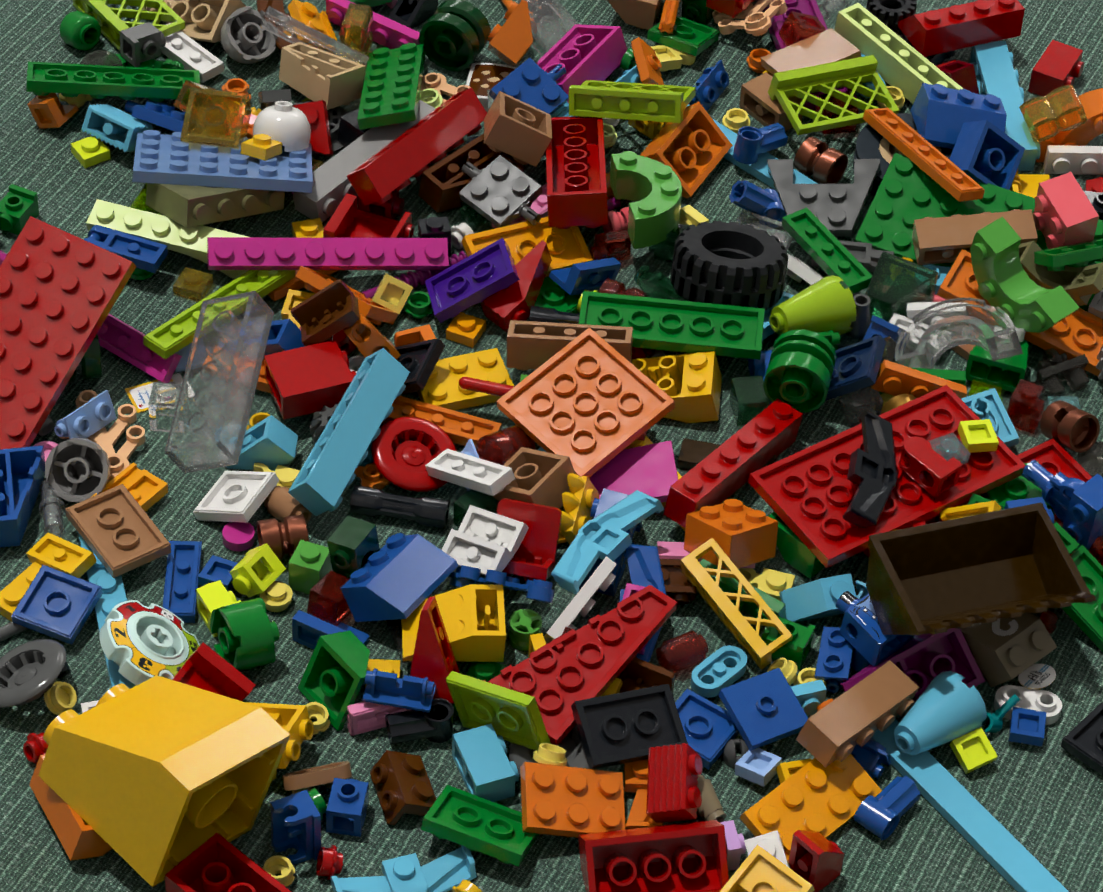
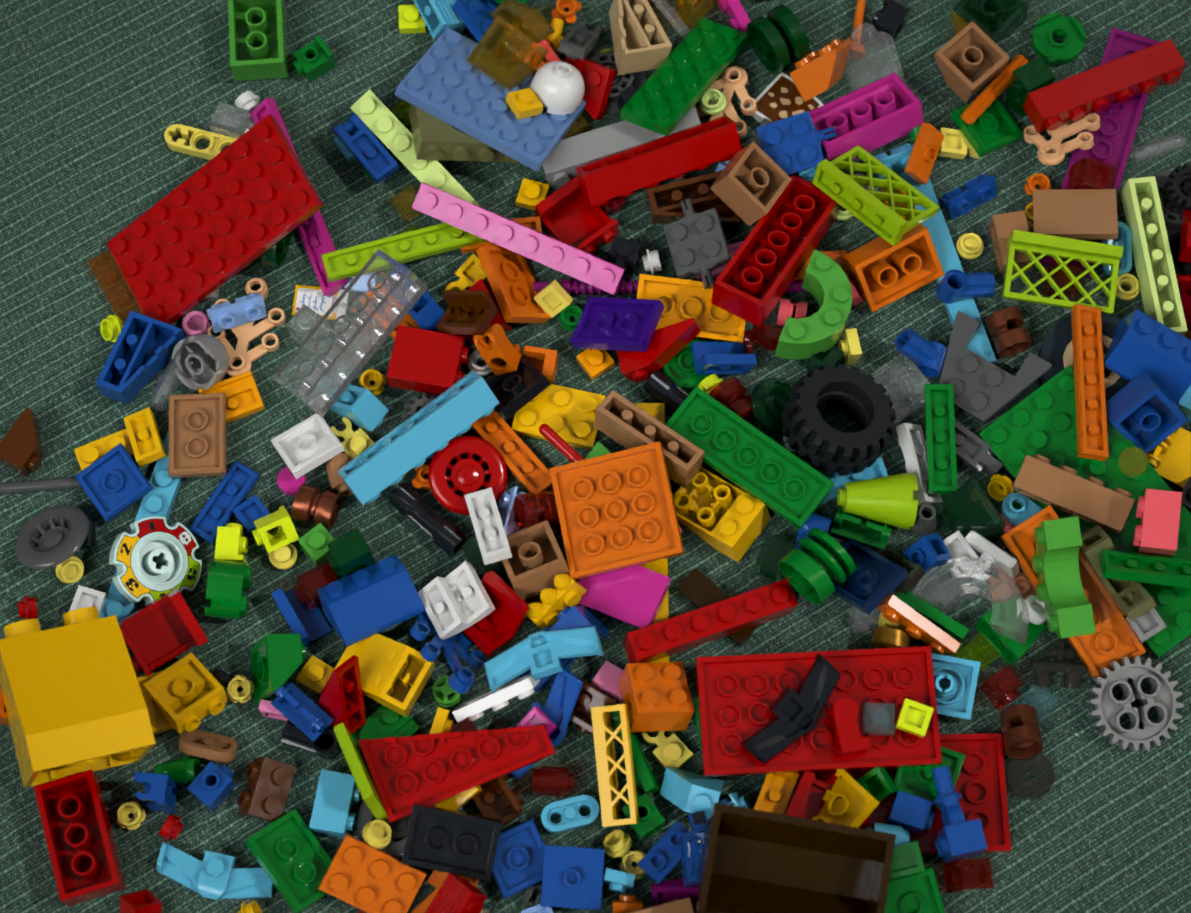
camera: 35 degrees right, 25 degrees up
(1005, 192) = (1133, 462): none -> clear yellow tile

